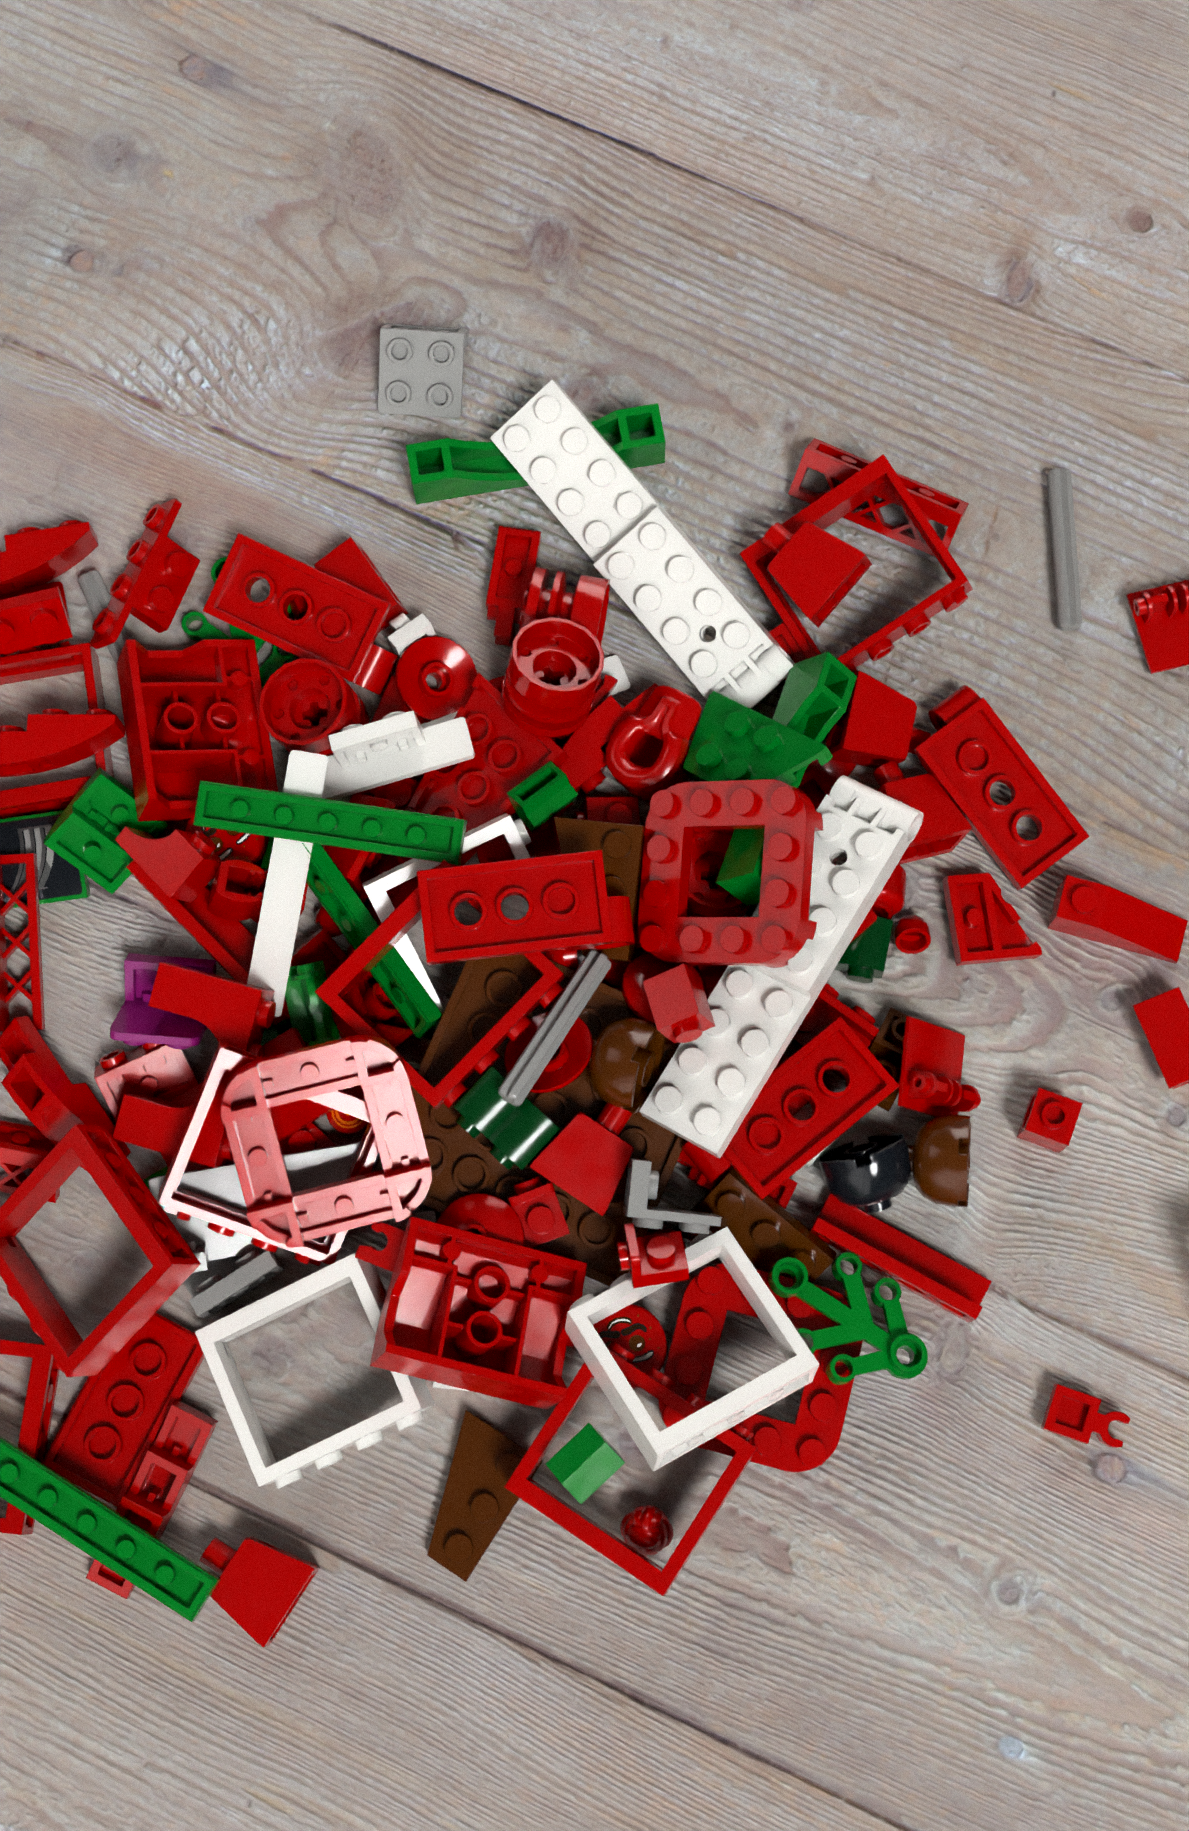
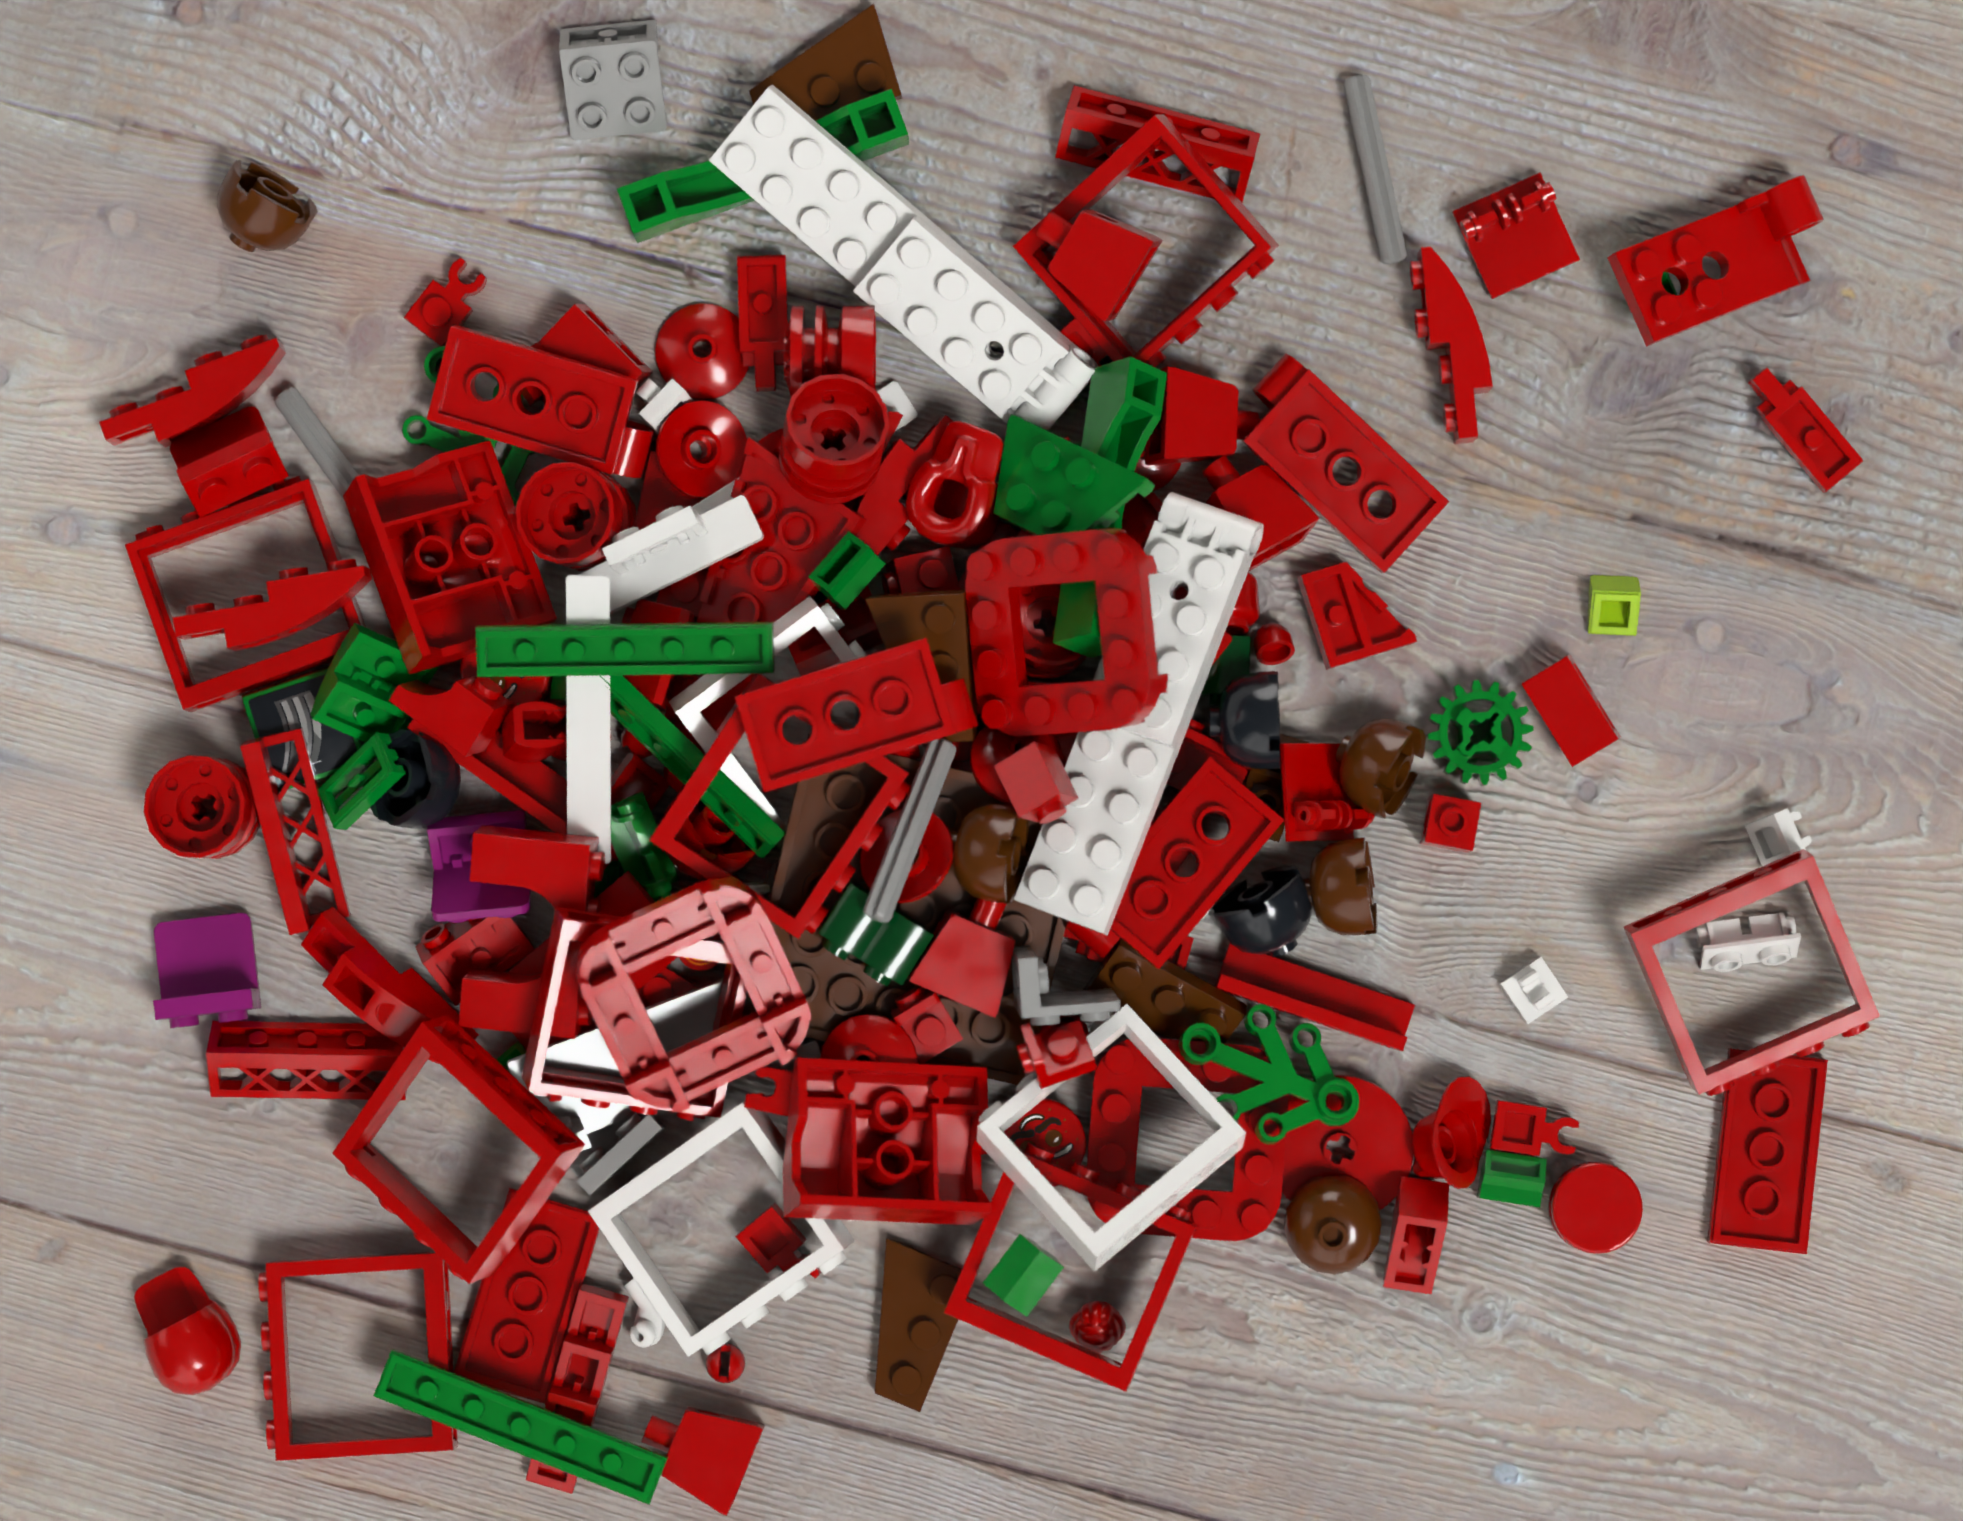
camera: 10 degrees left, 10 degrees up
(76, 909) = (362, 788): none -> green tile
(101, 419) = (261, 209): none -> reddish brown cylinder
(124, 916) = (428, 786): none -> black cylinder
(152, 580) = (358, 390): red bracket -> none
(230, 1451) = (648, 1325): none -> white arm
(247, 522) = (444, 306): none -> red plate
(303, 1504) = (736, 1363): none -> red hinge
(361, 1392) = (774, 1241): none -> red plate
(457, 621) = (707, 376): none -> red dish
(619, 385) = (837, 69): none -> reddish brown wing
(882, 991) = (1249, 720): none -> black cylinder
(883, 1472) = (1332, 1223): none -> reddish brown cylinder
(906, 1440) = (1376, 1134): none -> red piece
(961, 1498) = (1416, 1235): none -> red arch
(991, 1054) = (1378, 764): none -> reddish brown cylinder
(1009, 1410) = (1454, 1136): none -> red piece
(1058, 1461) = (1512, 1178): none -> green piece
(1098, 1058) = (1496, 748): none -> green gear
(1102, 1288) = (1533, 990): none -> white tile
(1114, 688) = (1451, 325): none -> red slope
(1116, 919) = (1493, 589): red slope -> none
(1133, 1503) = (1595, 1207): none -> red head

